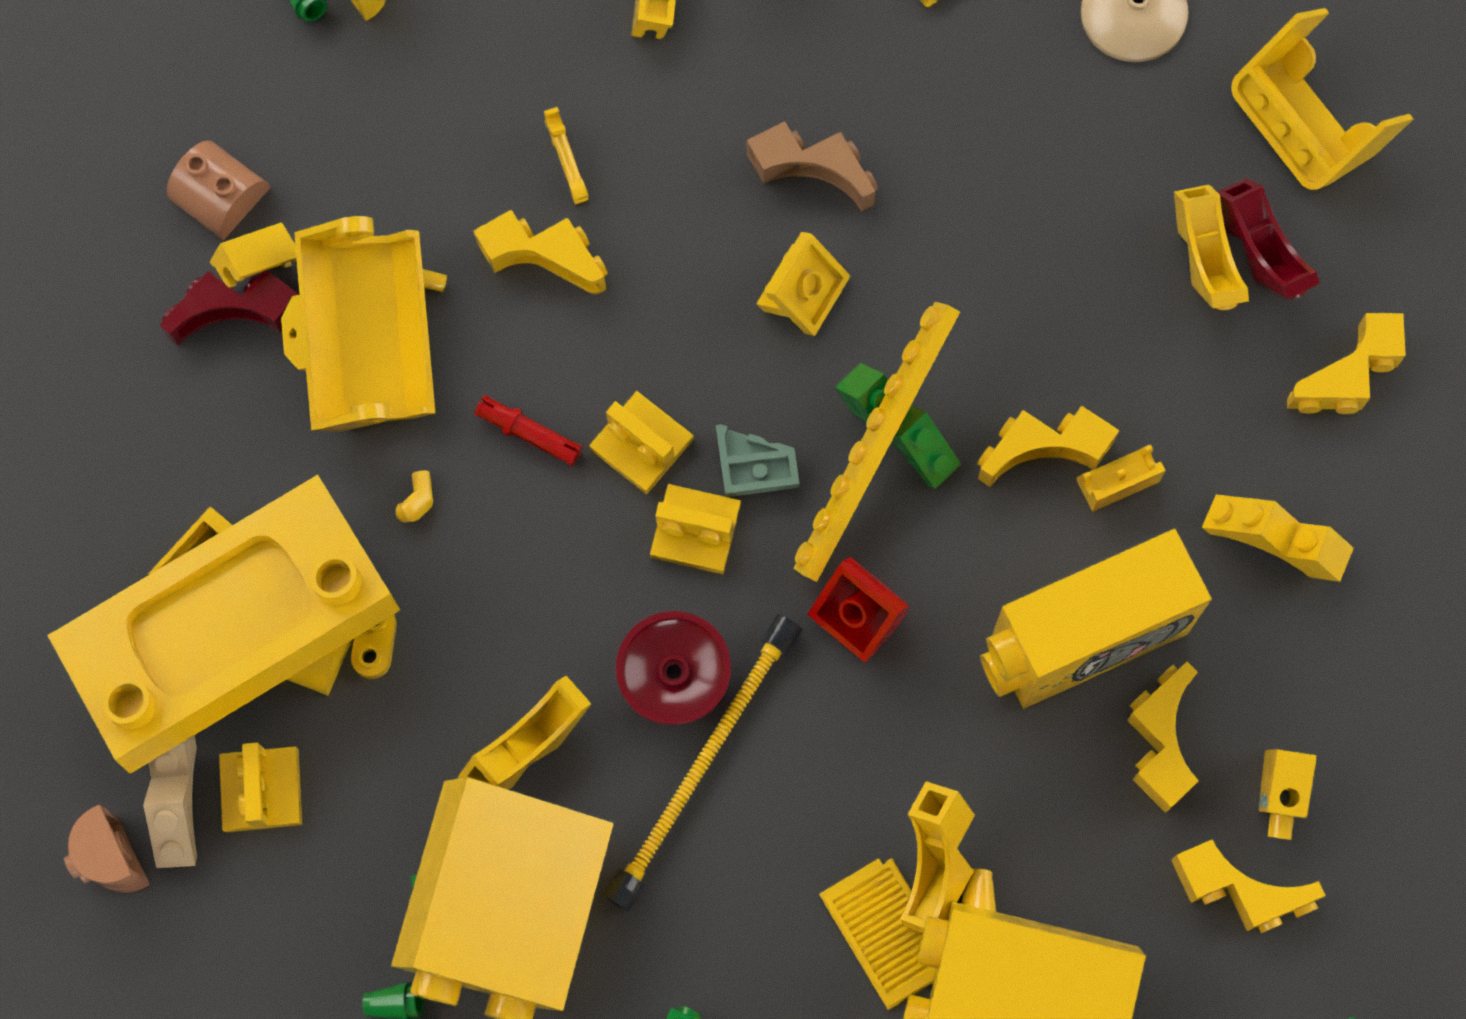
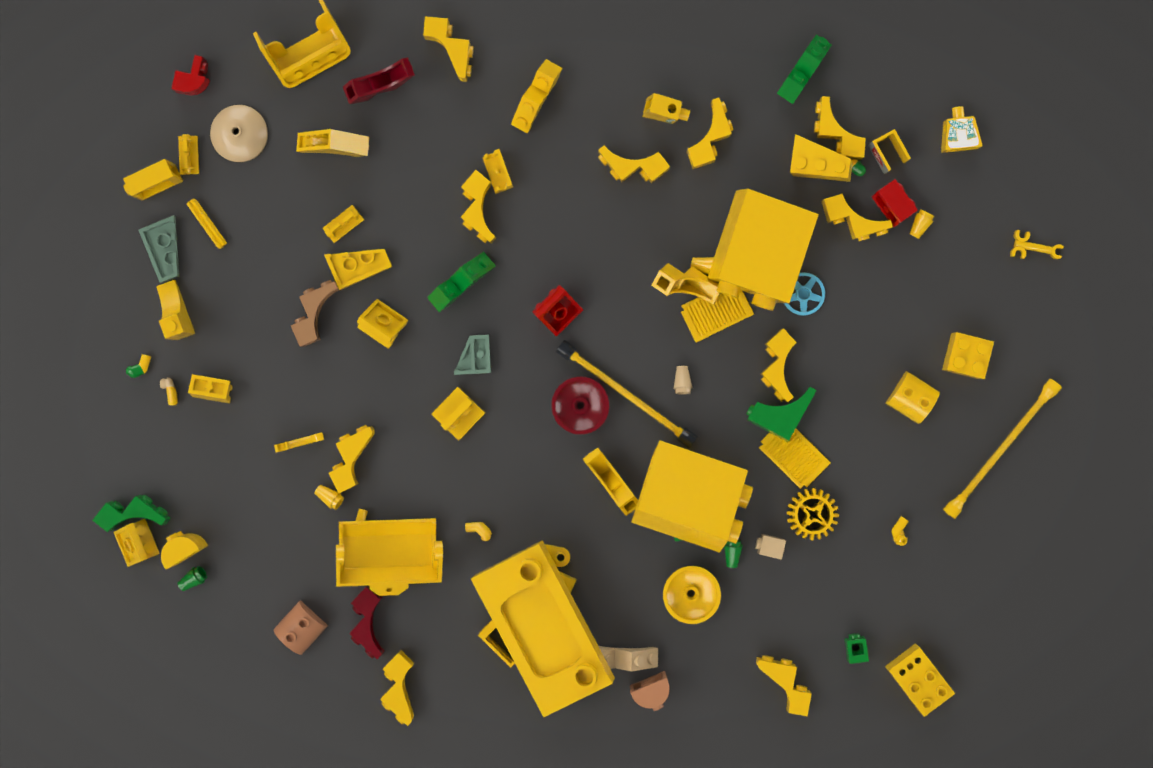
camera: 90 degrees left, 15 degrees up
(89, 371) = (396, 697): none -> yellow arch
(254, 254) = (342, 608): yellow hinge -> none
(260, 788) = (622, 614): yellow bracket -> none
(277, 914) = (691, 608): none -> yellow dish
(465, 219) = (329, 497): none -> yellow cone
(515, 423) = (447, 471): red pin -> none
(695, 529) = (506, 389): yellow bracket -> none
(738, 871) = (682, 380): none -> tan cone
(880, 431) = (468, 290): yellow plate -> none
(908, 234) = (356, 266): none -> yellow wing
(985, 203) = (343, 224): none -> yellow hinge
(1095, 620) = (579, 193): yellow brick -> none
(1138, 172) = (333, 142): none -> yellow arch
(1210, 256) = (380, 111): yellow arch -> none

